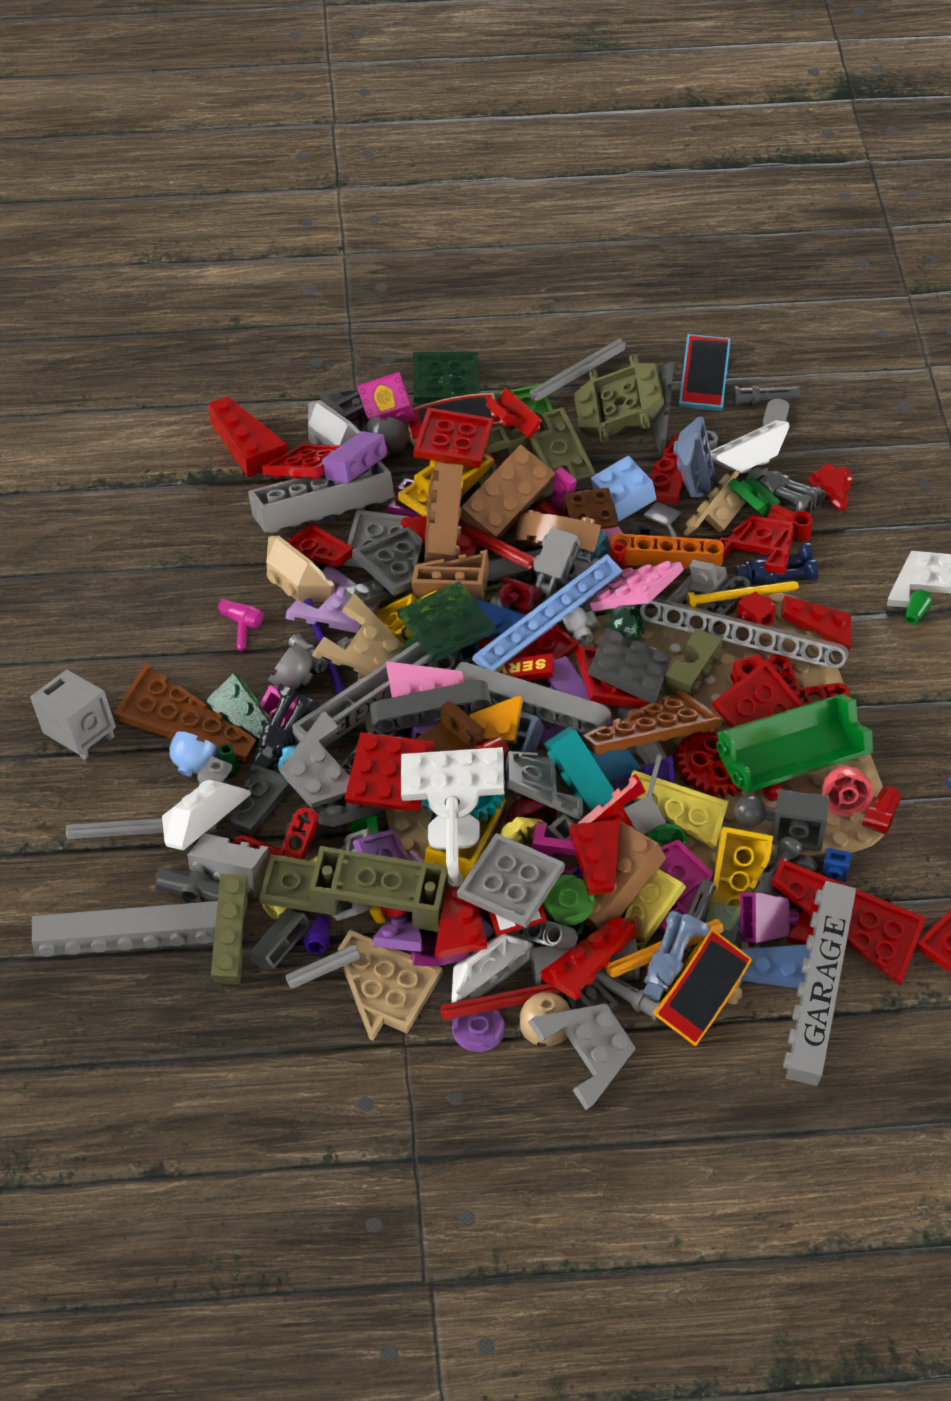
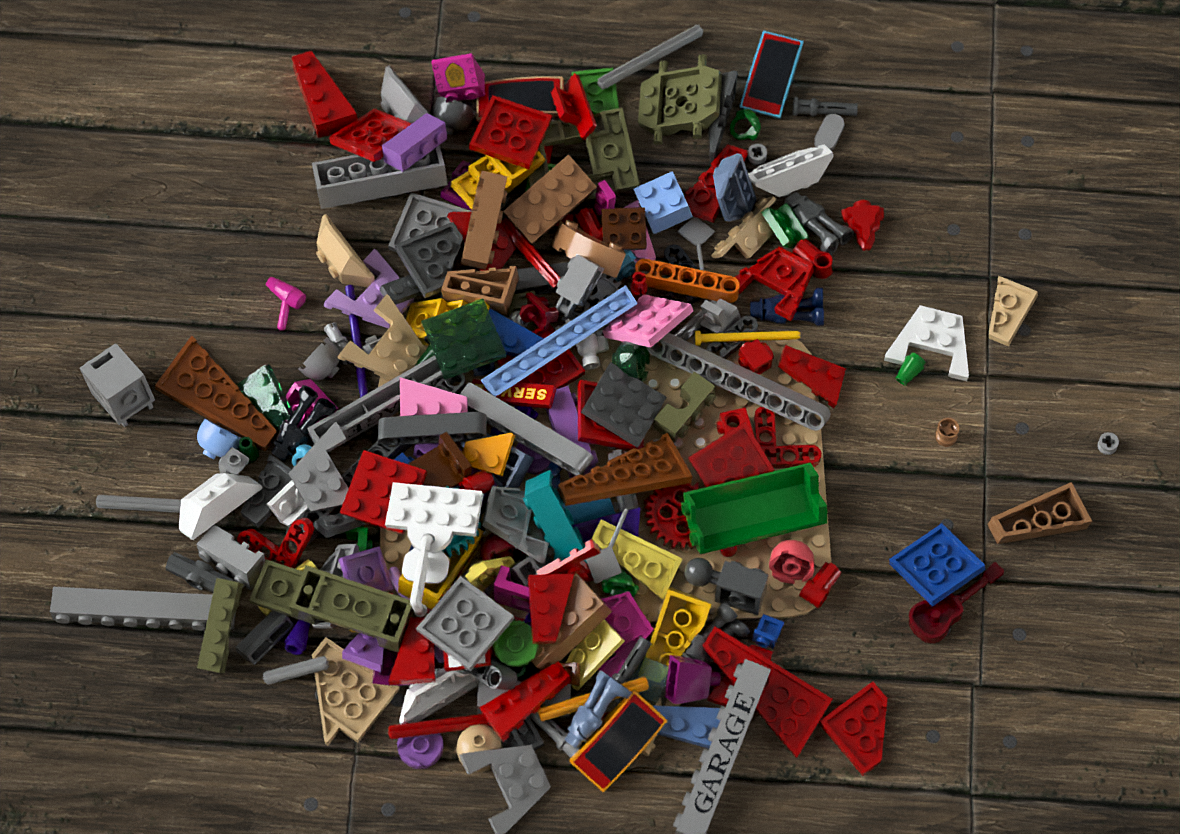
camera: 10 degrees right, 15 degrees up
(282, 805) = (287, 504): none -> white bracket
(321, 546) = (367, 230): red wing -> none
(346, 403) = (421, 67): dark grey wing -> none
(444, 375) = (522, 48): clear green plate -> none
(688, 406) = (753, 132): none -> green piece

